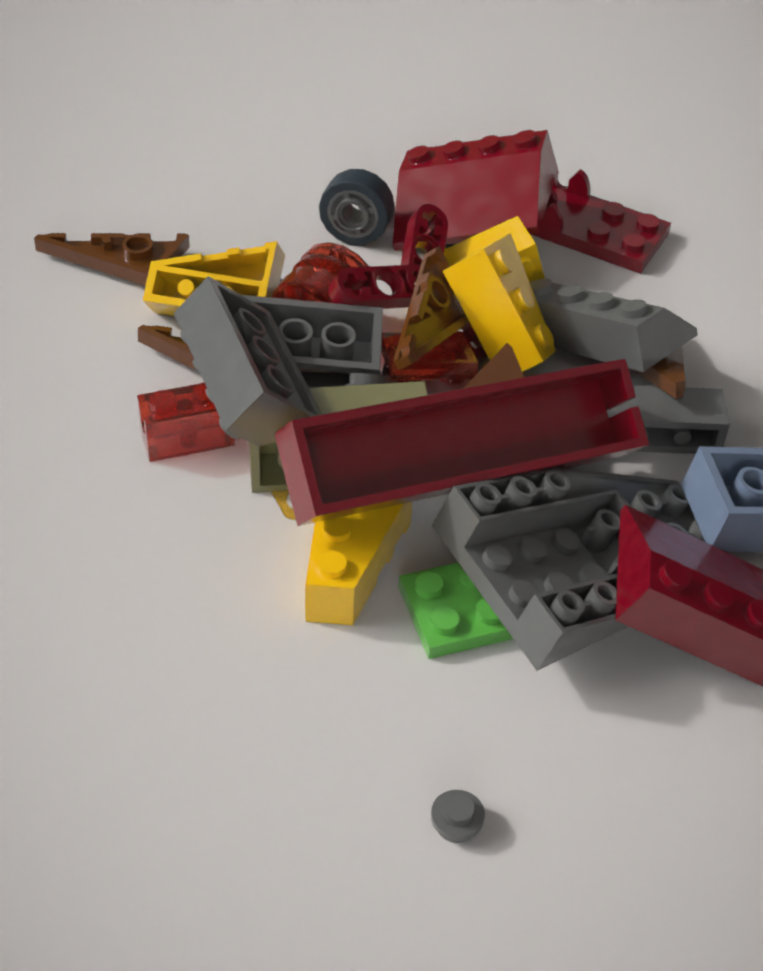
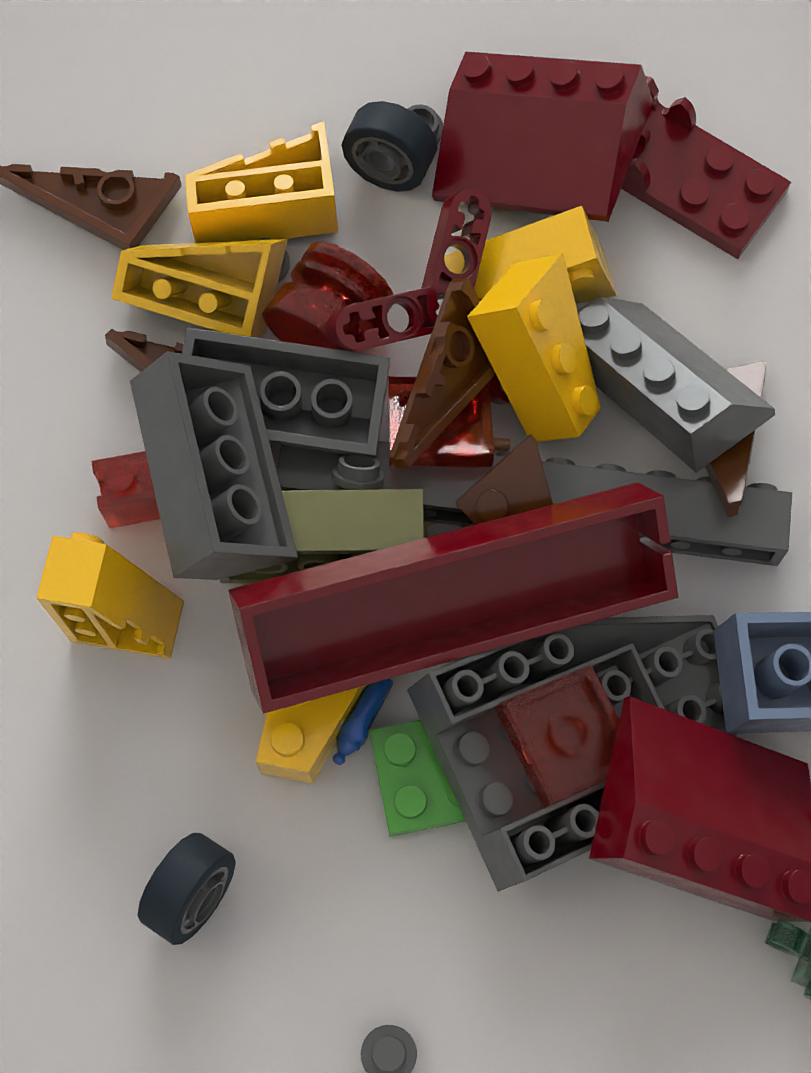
camera: 10 degrees right, 25 degrees up
(159, 480) = (106, 598): none -> yellow wedge
(252, 687) = (186, 888): none -> black wheel
(289, 224) = (267, 195): none -> yellow wedge
(392, 564) = (356, 727): none -> blue piece
(571, 538) = (562, 733): none -> clear red tile

